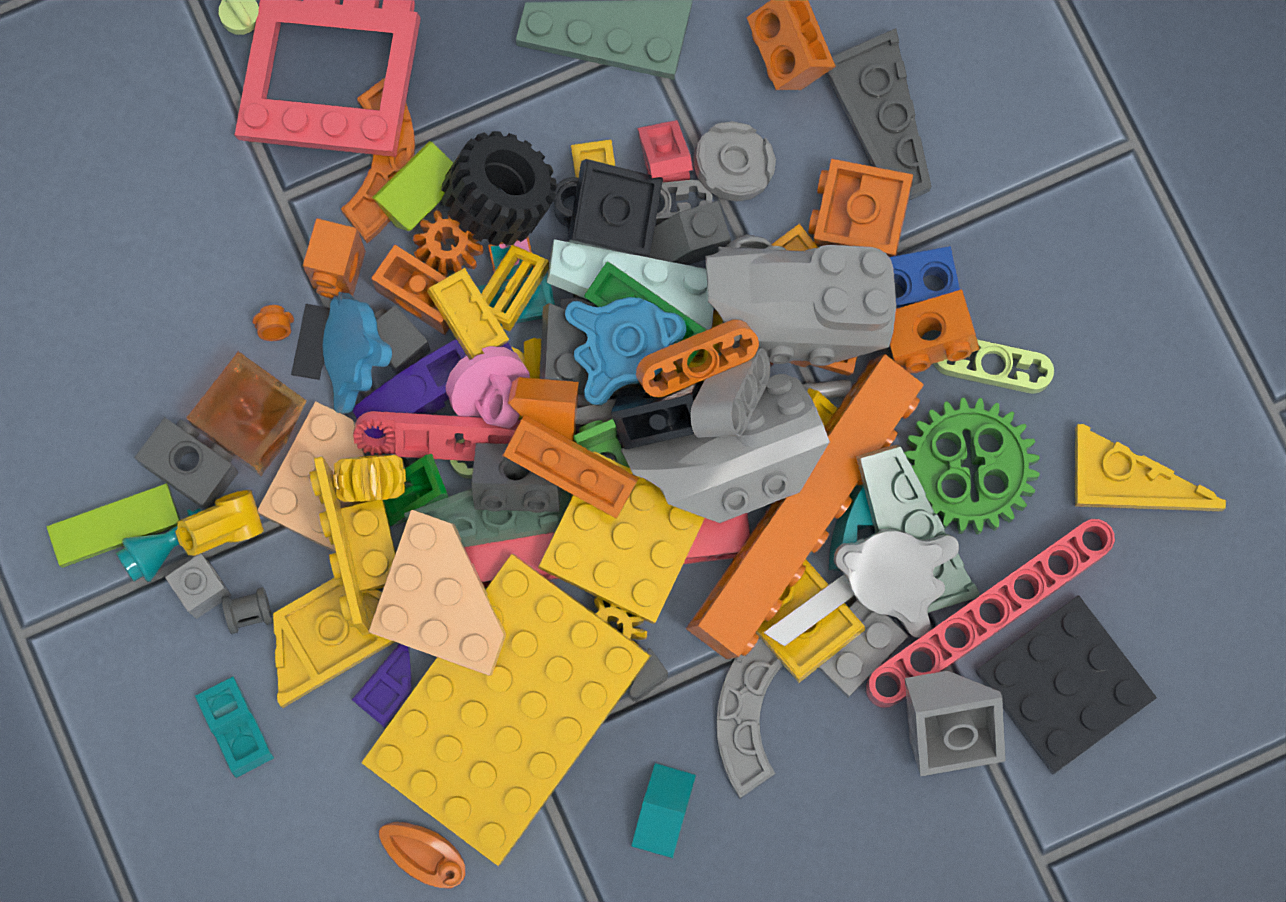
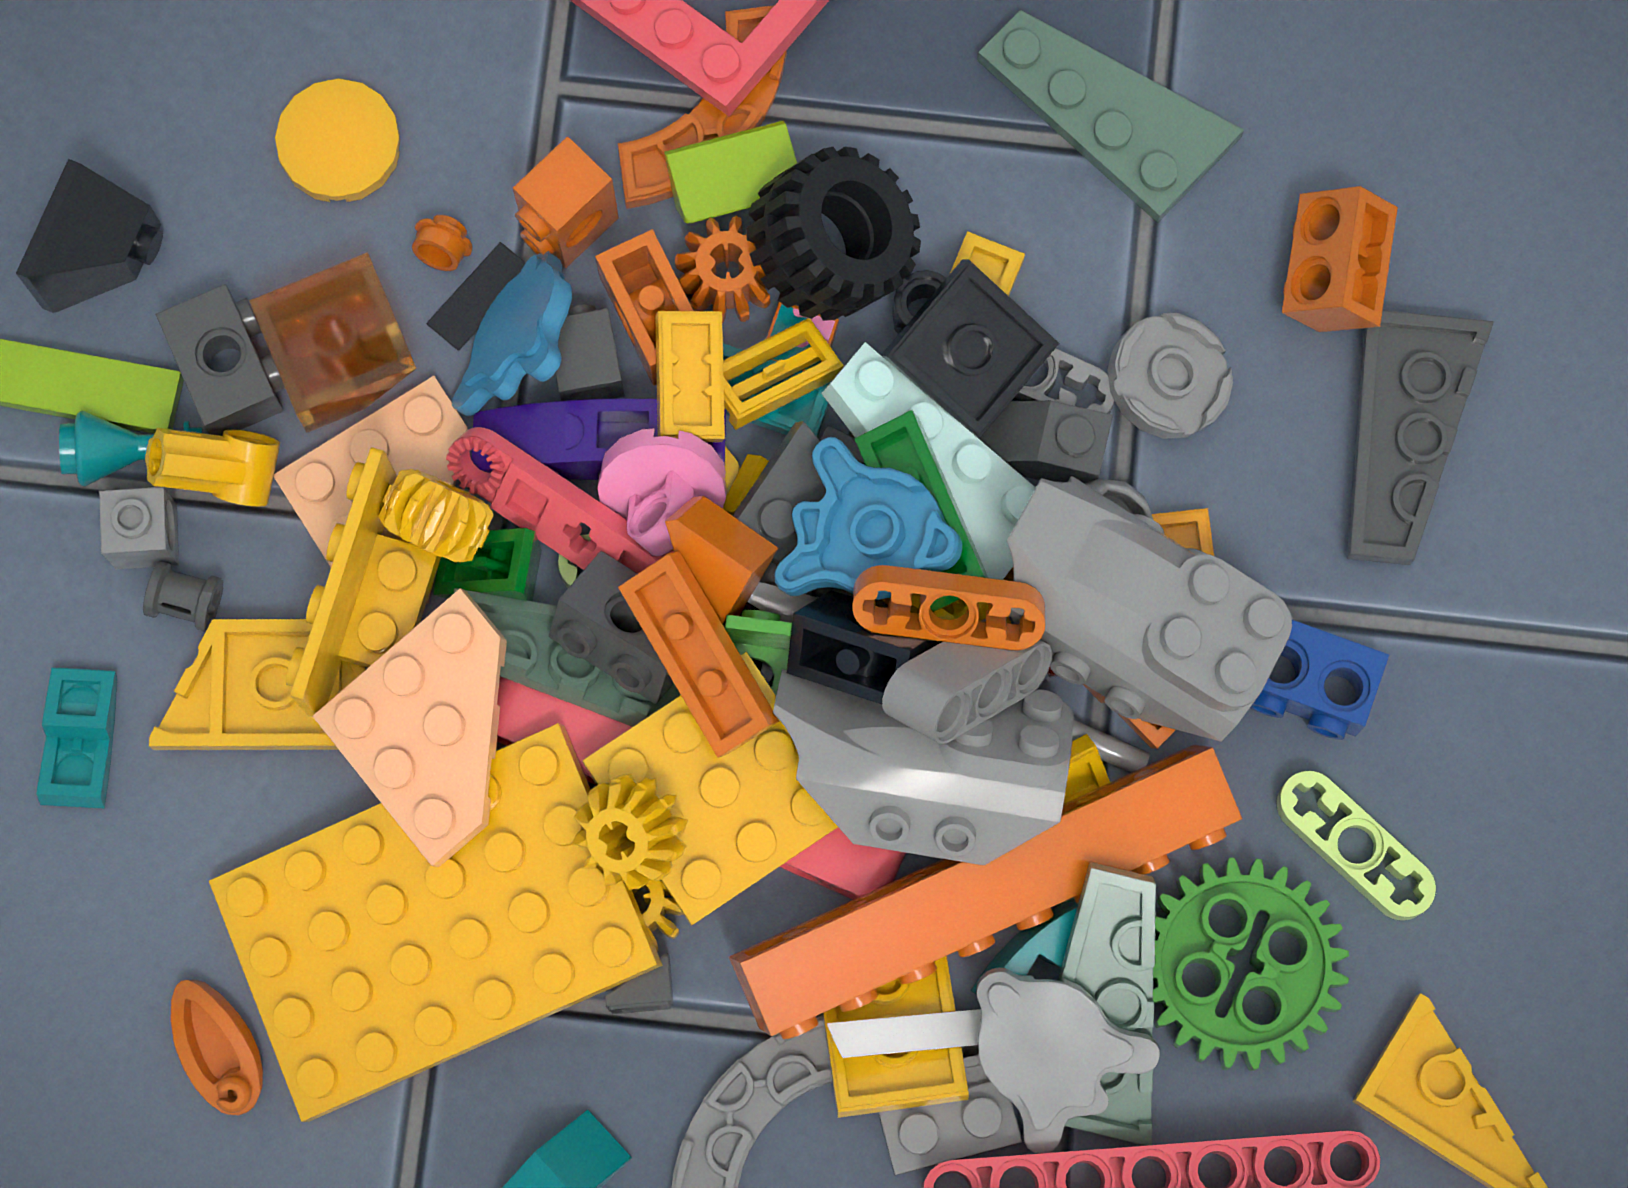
camera: 30 degrees right, 0 degrees up
(69, 437) = (88, 240): none -> black slope
(176, 299) = (338, 140): none -> yellow tile
(387, 687) = (301, 803): dark purple tile -> none
(603, 580) = (630, 831): none -> yellow gear
(665, 151) = (1085, 311): coral slope -> none
(861, 206) = (1300, 534): orange plate -> none
(942, 313) = (1327, 739): orange brick -> none

